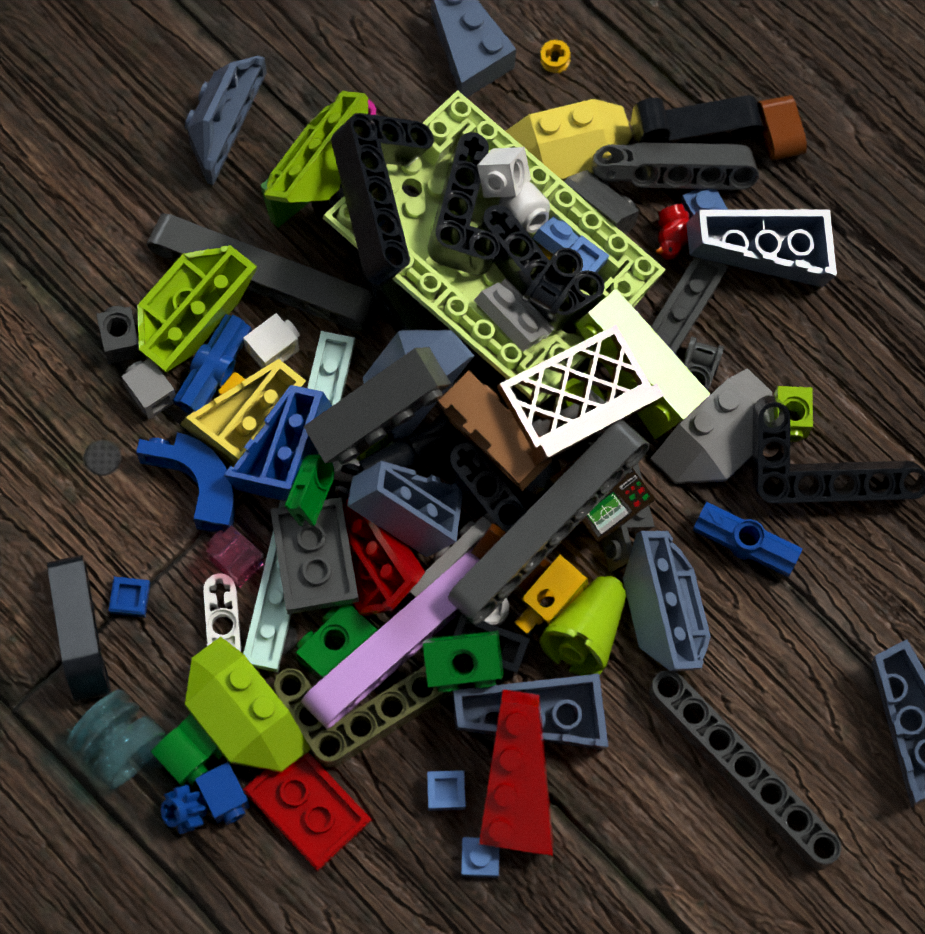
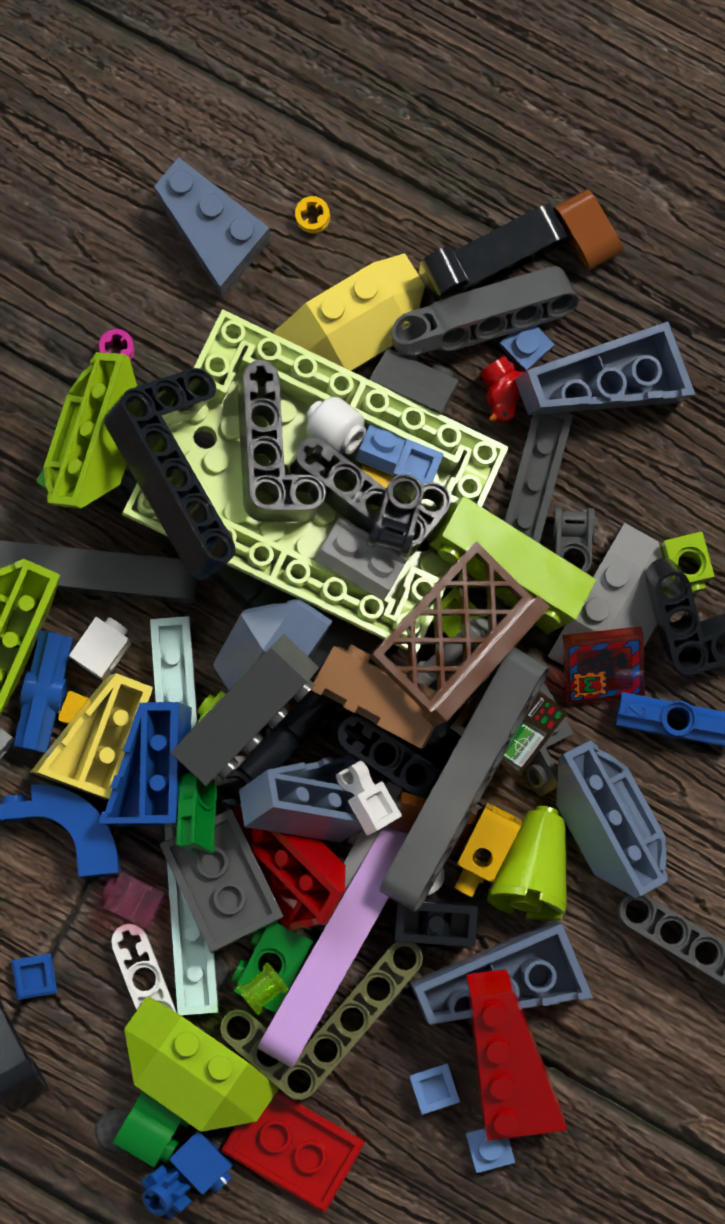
camera: 15 degrees left, 10 degrees up
(116, 738) = (71, 1141): clear light blue wheel -> none
(321, 653) = (262, 988): none -> clear neon green bush
(461, 521) = (371, 802): none -> white plate
(483, 649) = (428, 934): green brick -> none
(504, 172) = (303, 397): white brick -> none
(696, 472) = (603, 664): none -> tile

